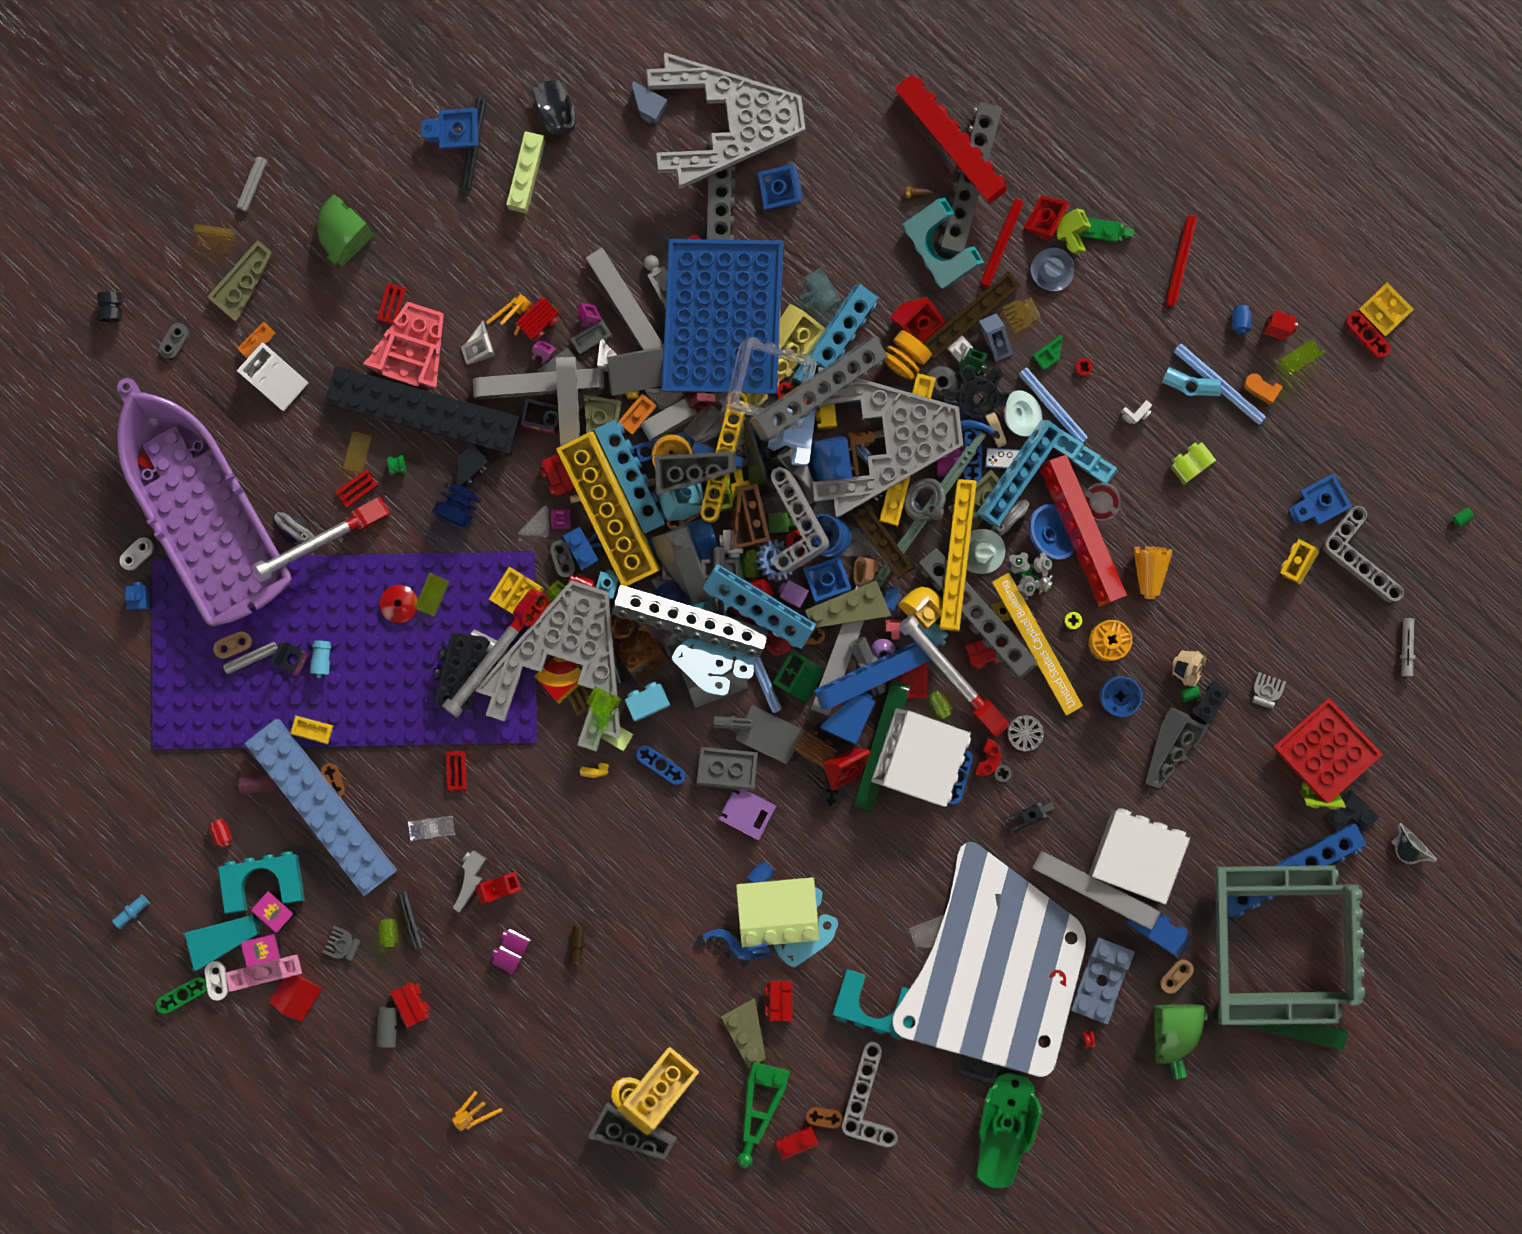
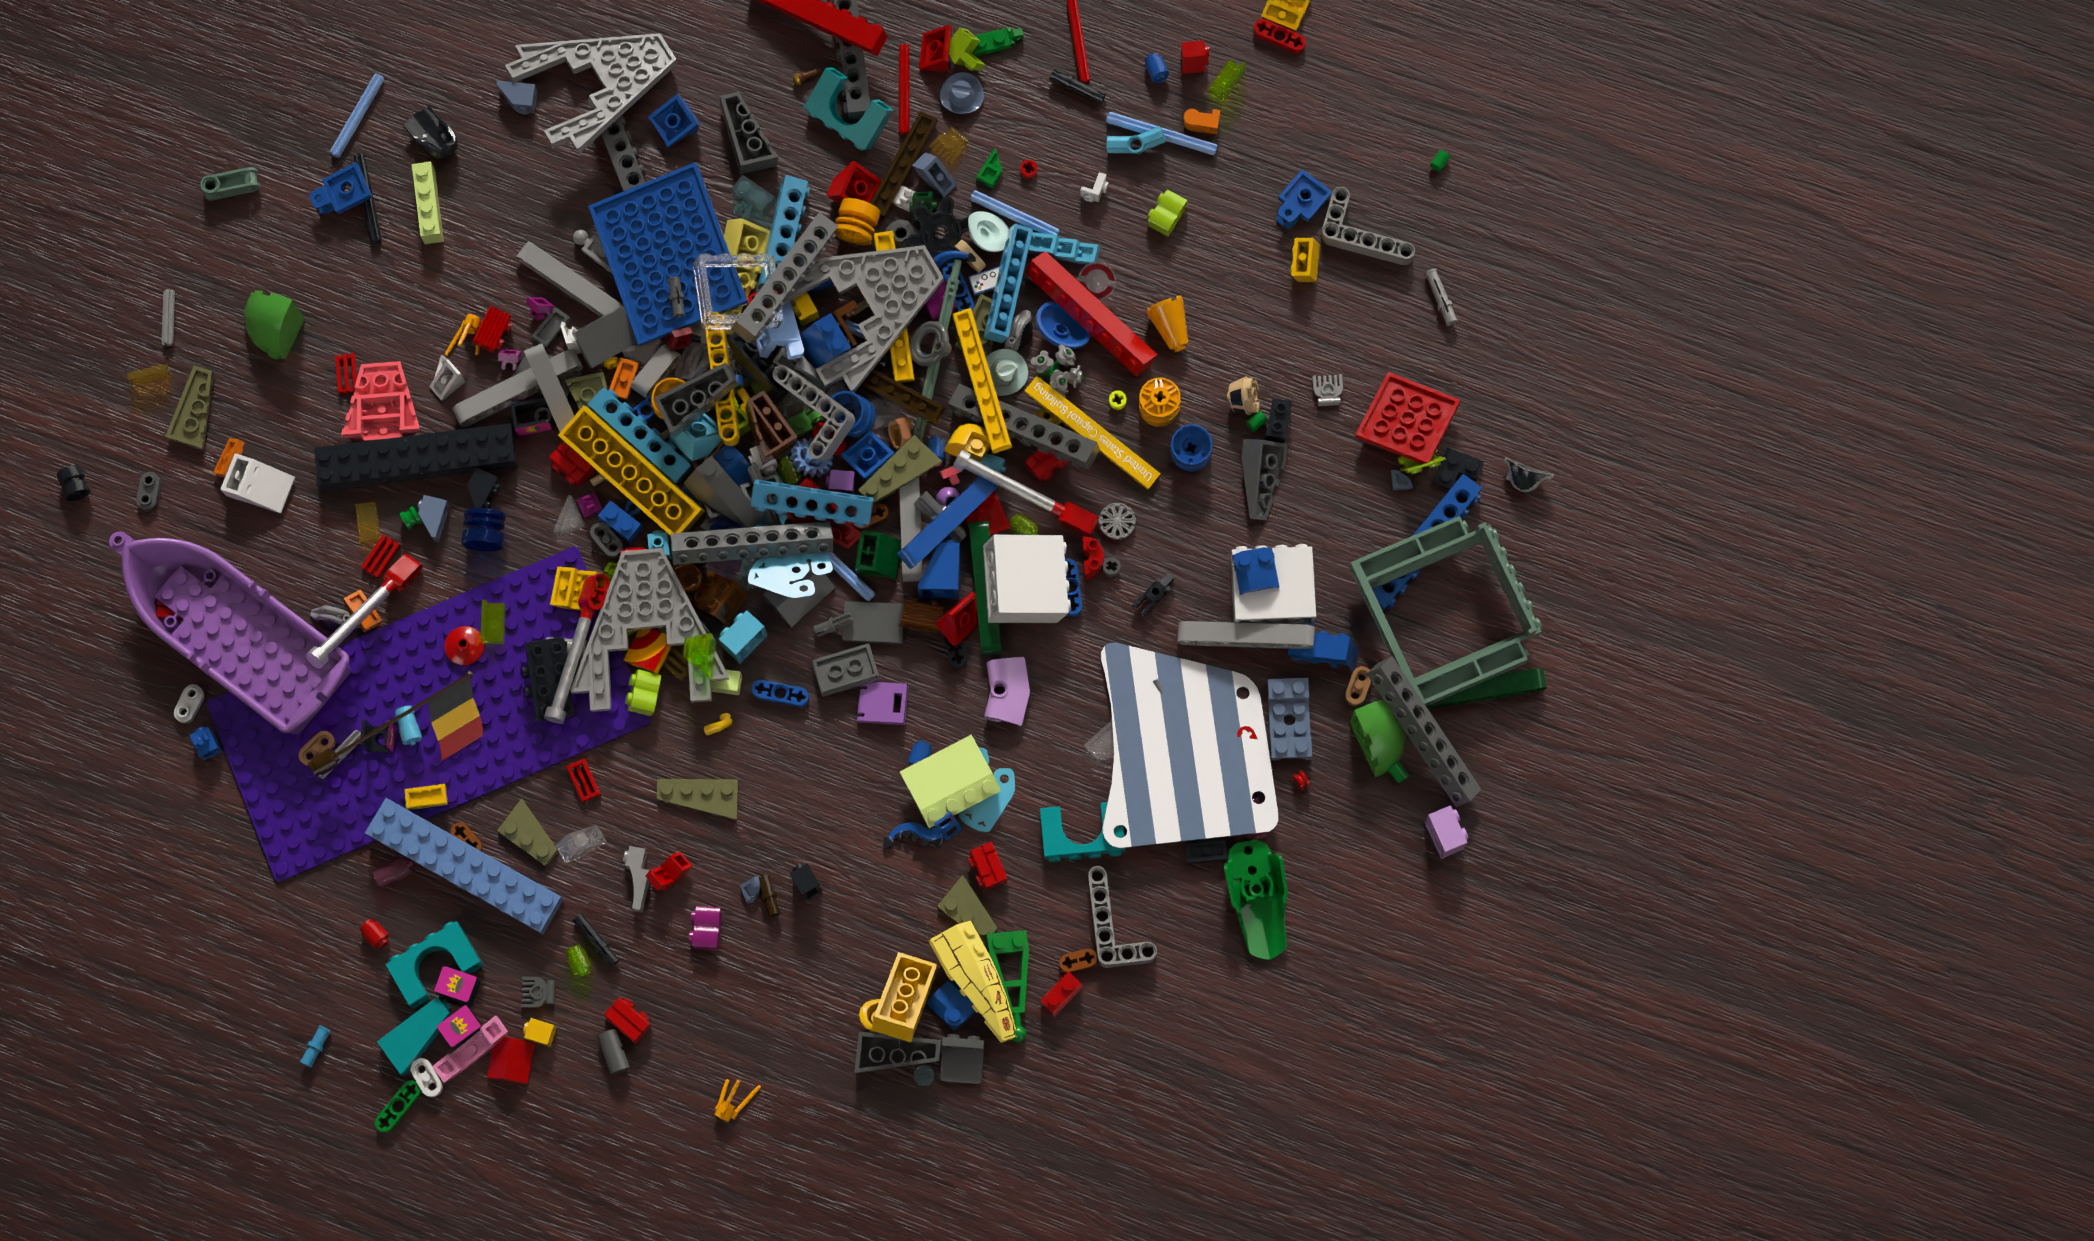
camera: 20 degrees left, 10 degrees down
(317, 525) = (353, 602): none -> orange plate
(329, 982) = (539, 1032): none -> yellow brick
(355, 78) = (230, 183): none -> sand green piece
(361, 668) = (451, 715): none -> flag
(387, 797) = (527, 833): none -> olive wing
(417, 471) = (433, 514): none -> sand blue slope
(494, 59) = (357, 115): none -> light blue axle
(540, 715) = (643, 692): none -> lime brick
(555, 828) = (705, 795): none -> olive wing
(563, 932) = (751, 889): none -> sand blue tile
(613, 948) = (805, 881): none -> black brick
(647, 1162) = (924, 1075): none -> clear light blue tile
(686, 1163) = (962, 1059): none -> dark grey bracket
(701, 1109) = (951, 1005): none -> blue slope
(714, 362) = (676, 297): none -> dark grey pin
(727, 1088) = (972, 968): none -> light yellow wedge
(839, 235) = (748, 142): none -> dark grey wedge
(873, 839) = (1013, 677): none -> lavender panel
(1129, 840) = (1255, 570): none -> blue slope
(1159, 304) = (1073, 84): none -> black pin
(1197, 1144) = (1446, 831): none -> lavender brick
(1216, 1049) = (1424, 731): none -> dark grey brick
(1295, 802) = (1400, 481): none -> sand blue tile

